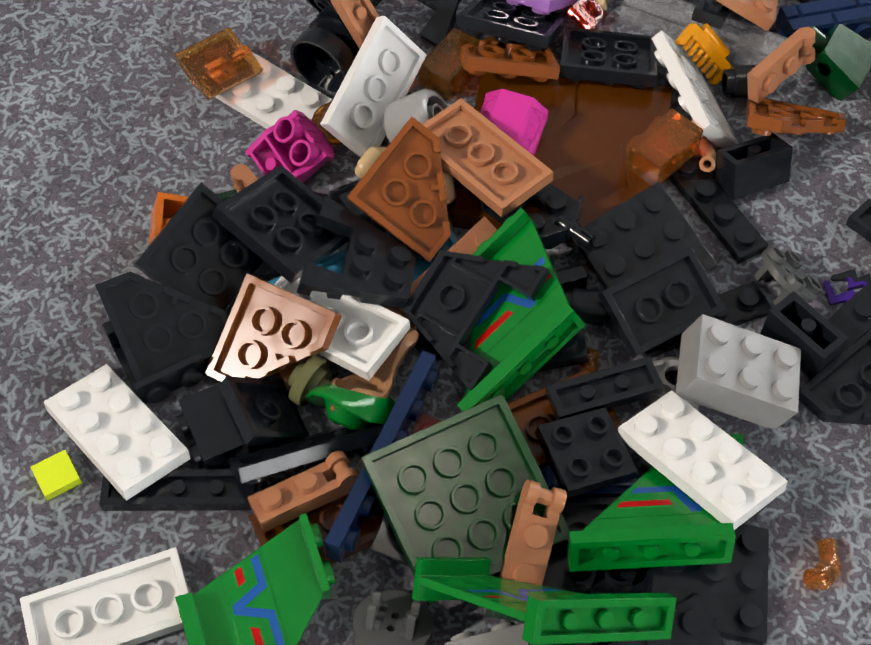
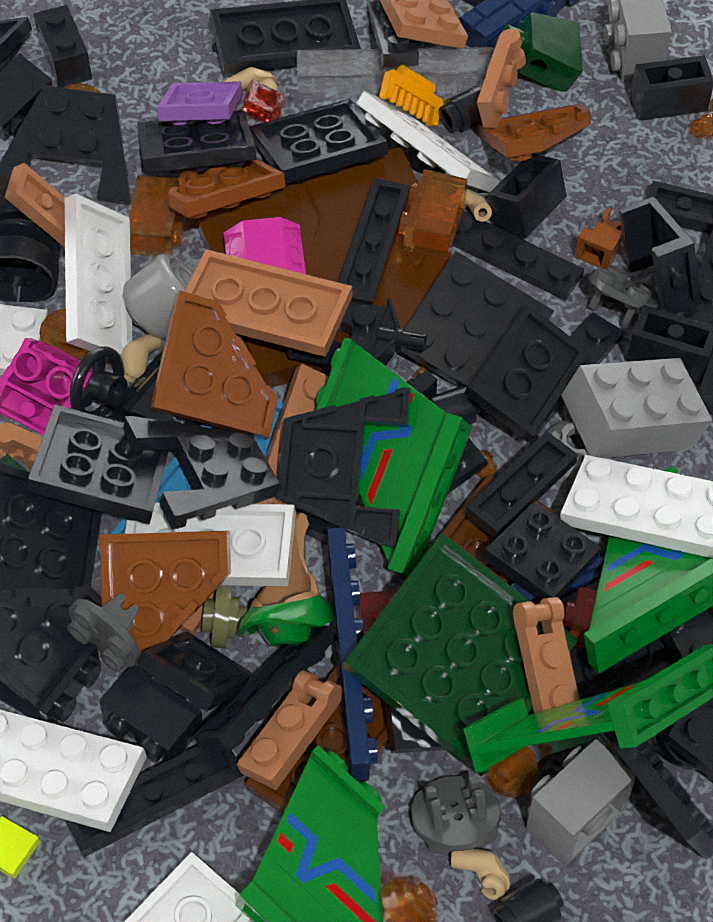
camera: 30 degrees left, 0 degrees up
(213, 344) = (107, 629): none -> dark grey plate
(330, 169) = (103, 385): none -> black piece
(456, 617) = (514, 774): none -> clear orange piece
(584, 513) = (579, 614): none -> clear red plate
(600, 149) = (374, 239): none -> black plate
(796, 229) = (600, 244): none -> dark orange piece
(836, 257) = (657, 240): none -> black panel

